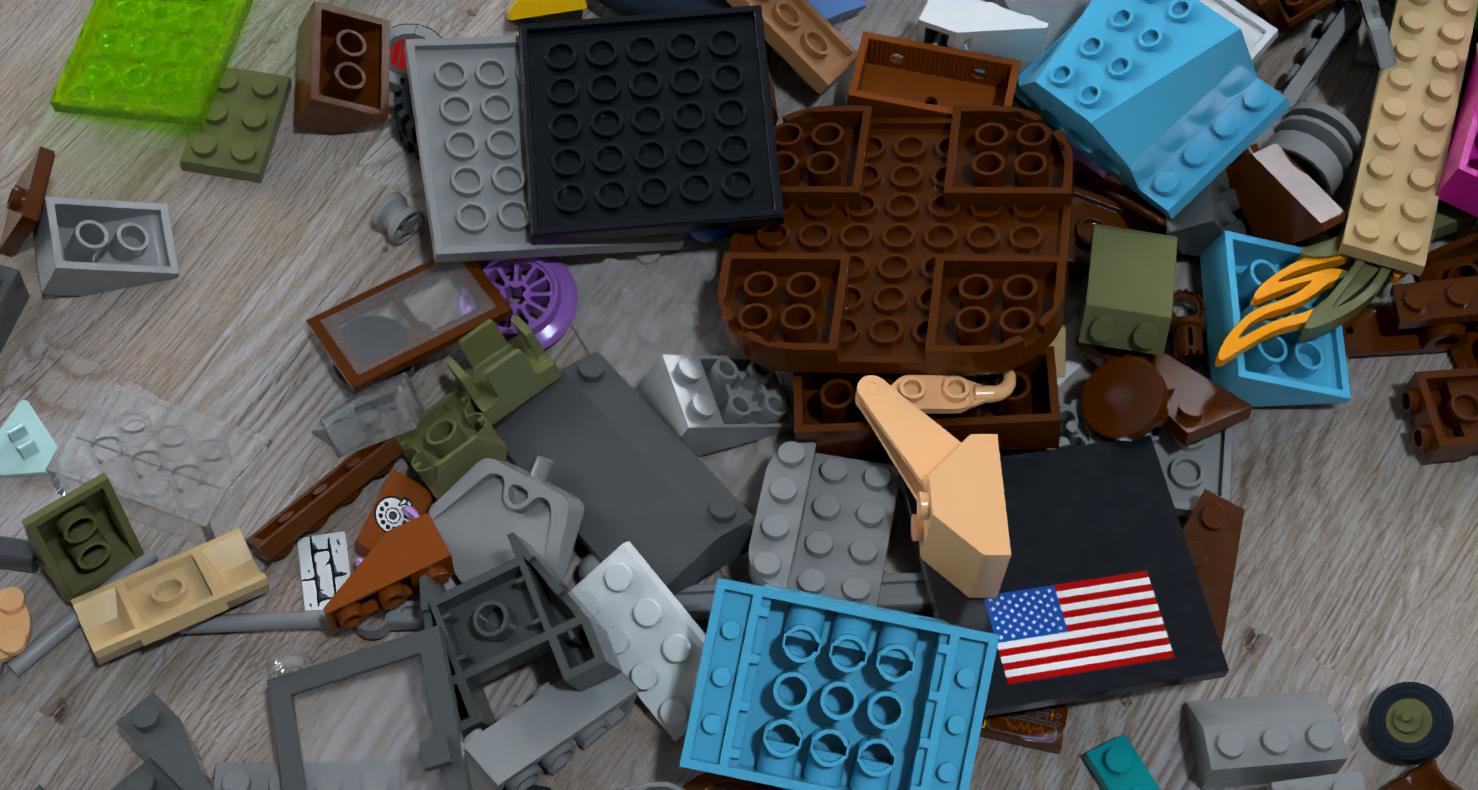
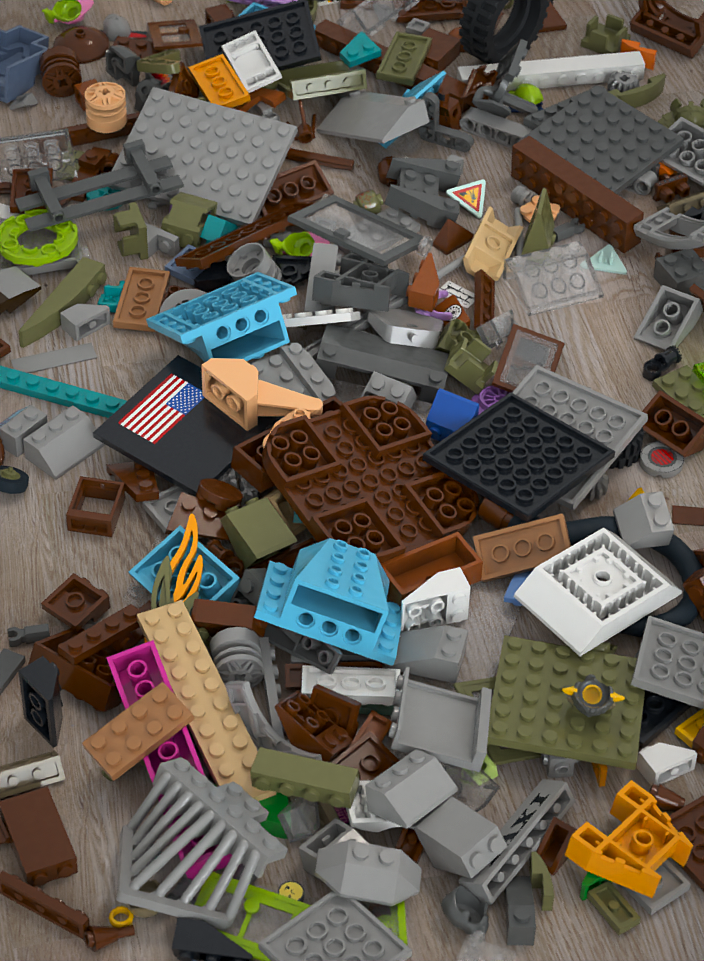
camera: 140 degrees right, 15 degrees down
(61, 750) = (470, 196): none -> piece
(198, 691) = (452, 237): none -> reddish brown slope
(211, 191) = (661, 363): none -> black connector
(651, 284) = (449, 414): none -> blue slope
(1329, 539) = (94, 522): none -> reddish brown window

